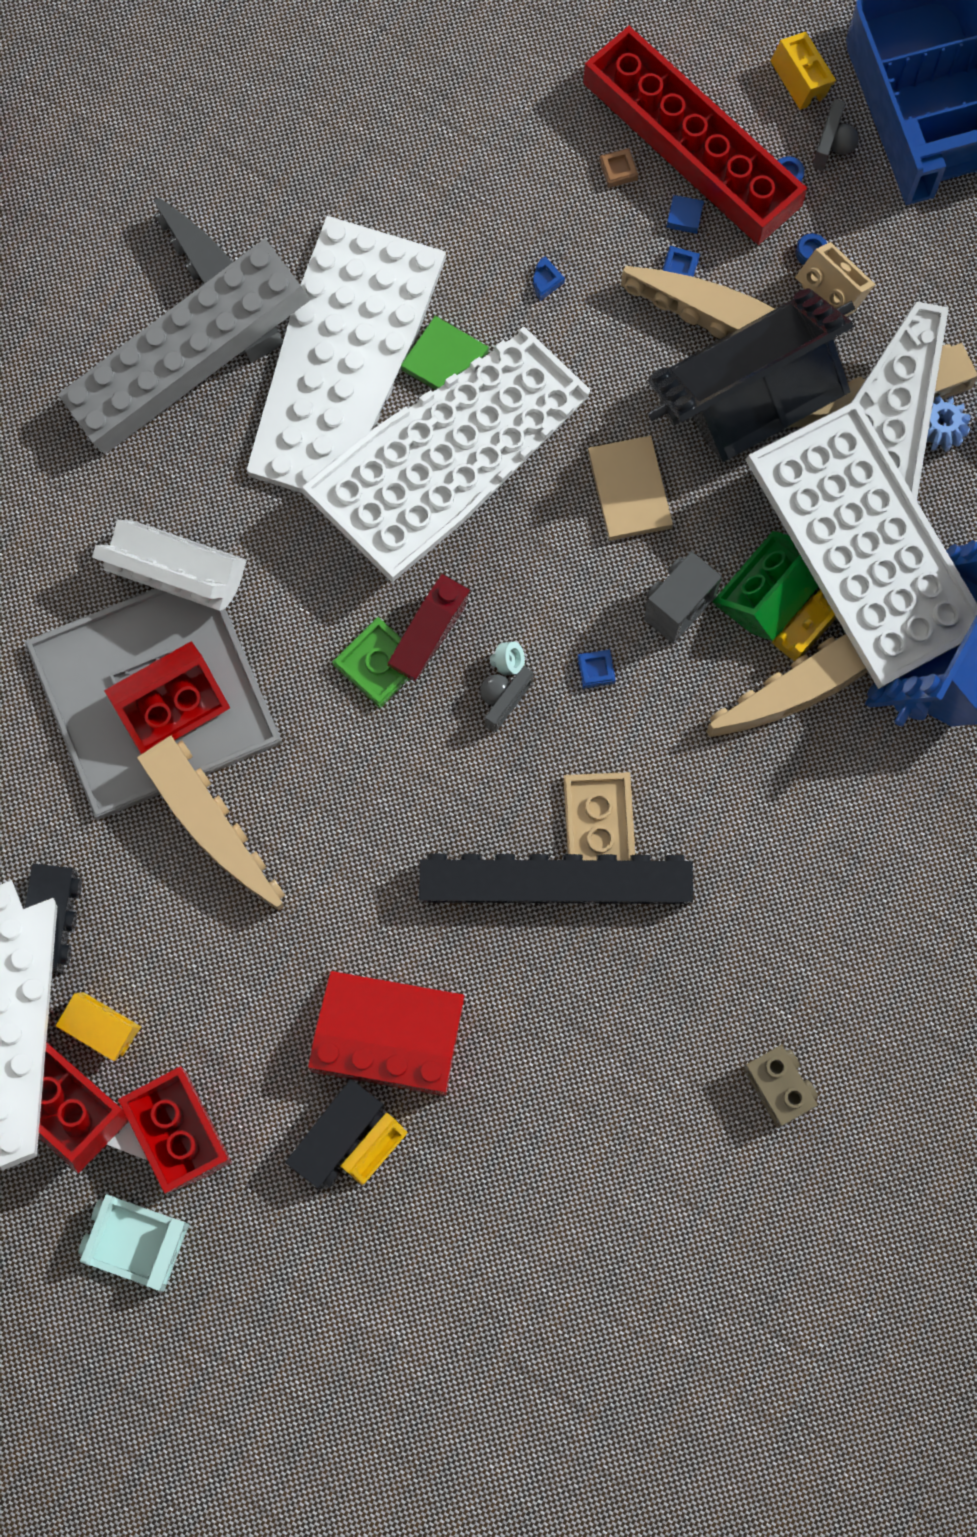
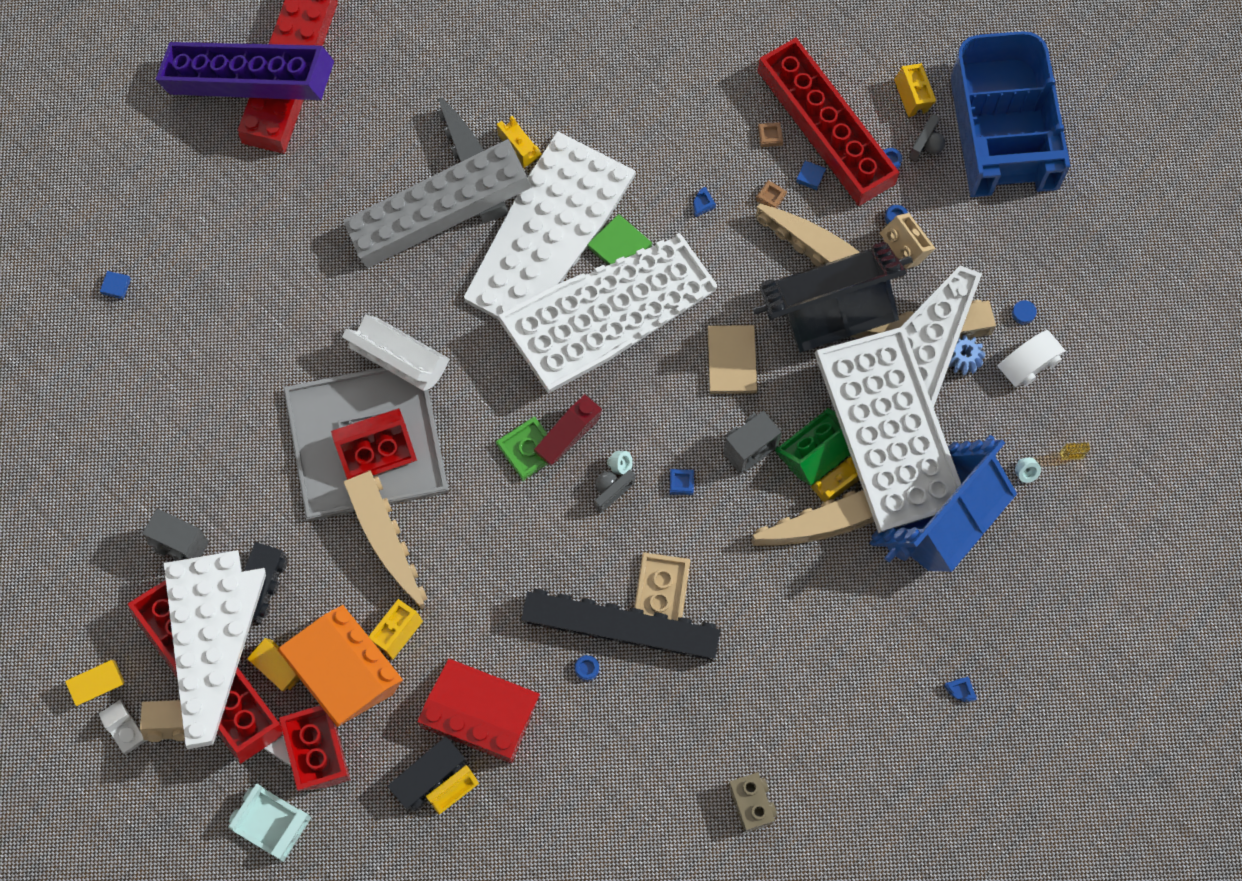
camera: 10 degrees right, 5 degrees down
(186, 1011) = (340, 666): none -> orange slope
(250, 945) = (395, 629): none -> yellow hinge
(287, 247) = (522, 145): none -> yellow hinge
(520, 947) = (586, 668): none -> blue tile
(637, 251) = (771, 195): none -> medium nougat tile
(681, 261) = (801, 208): blue tile -> none

